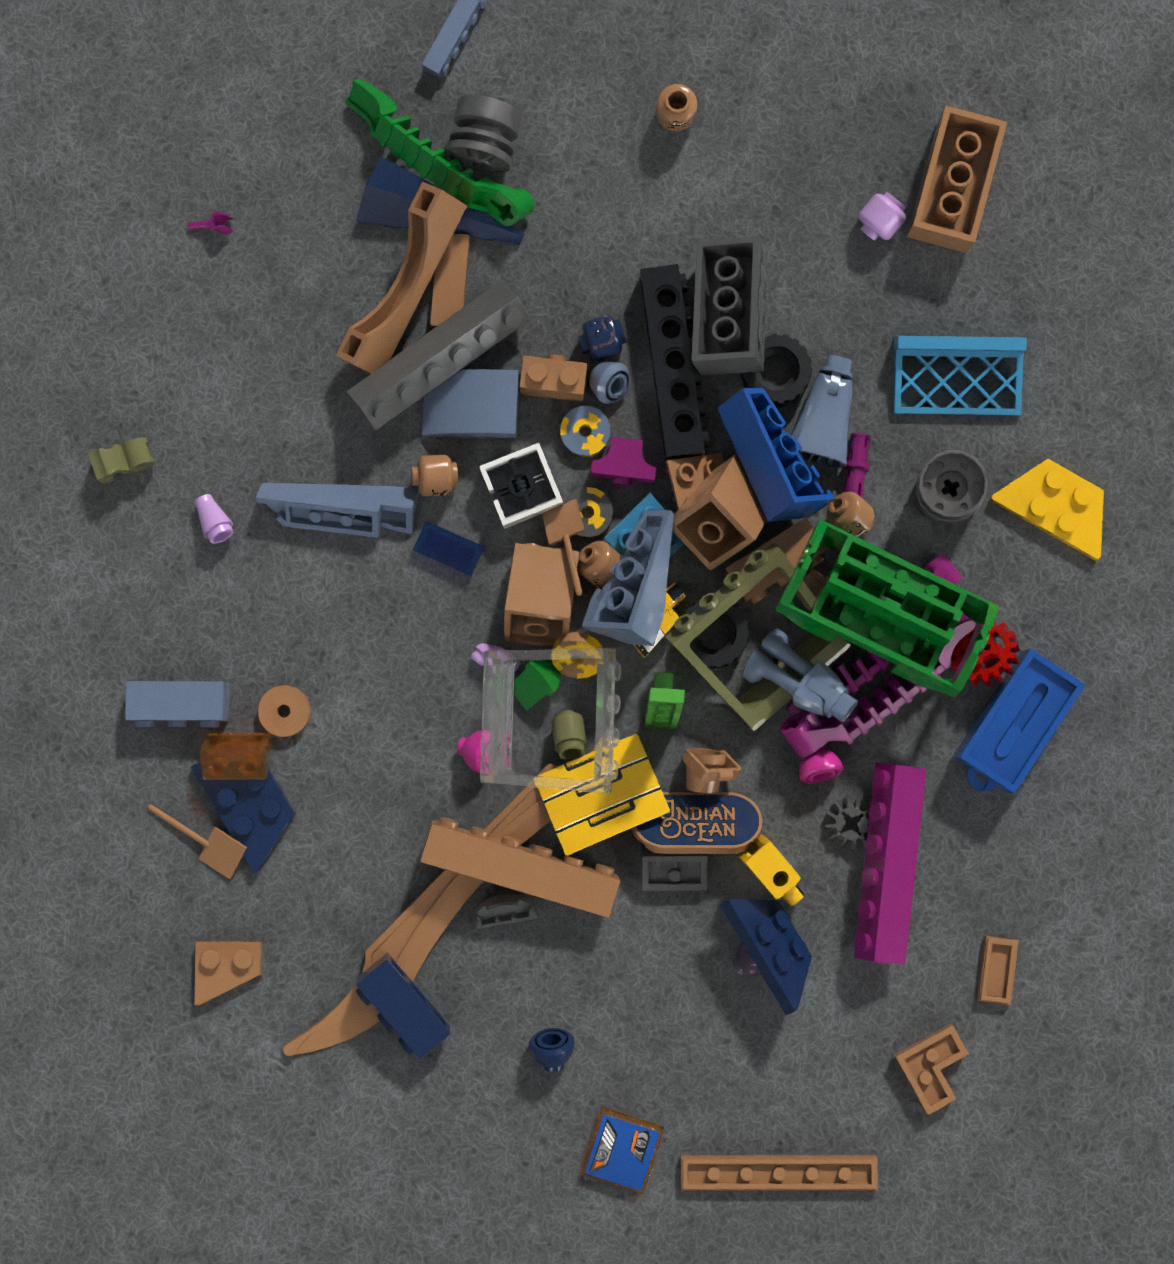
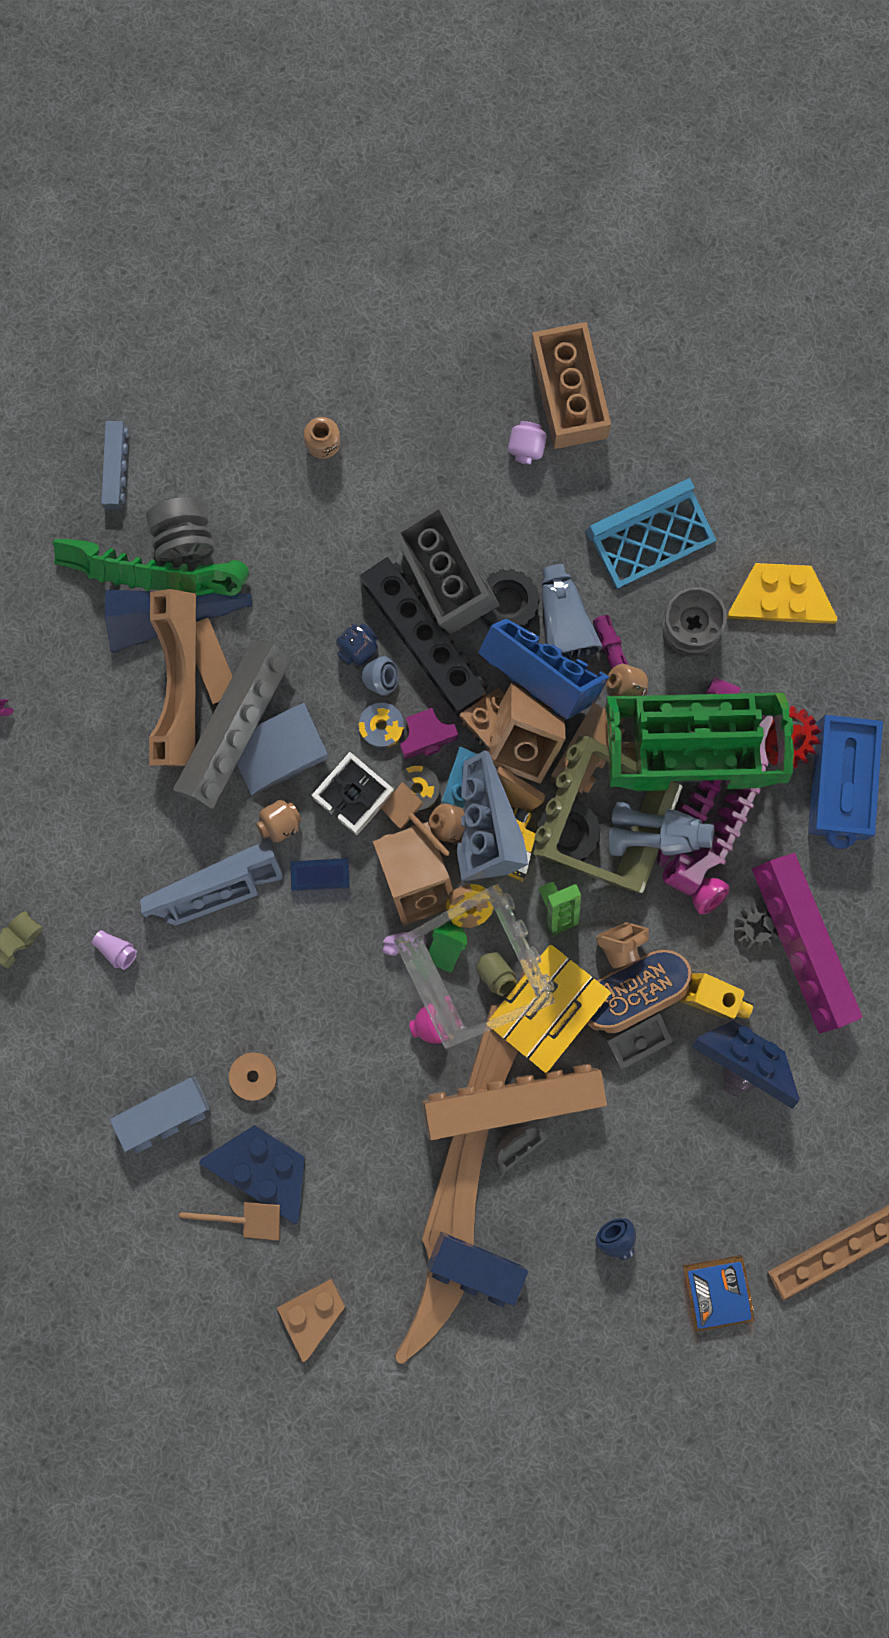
camera: 30 degrees left, 5 degrees down
(235, 756) = (231, 1134): clear orange bracket -> none
(553, 378) = (335, 695): medium nougat brick -> none
(684, 568) = (519, 792): none -> medium nougat tile

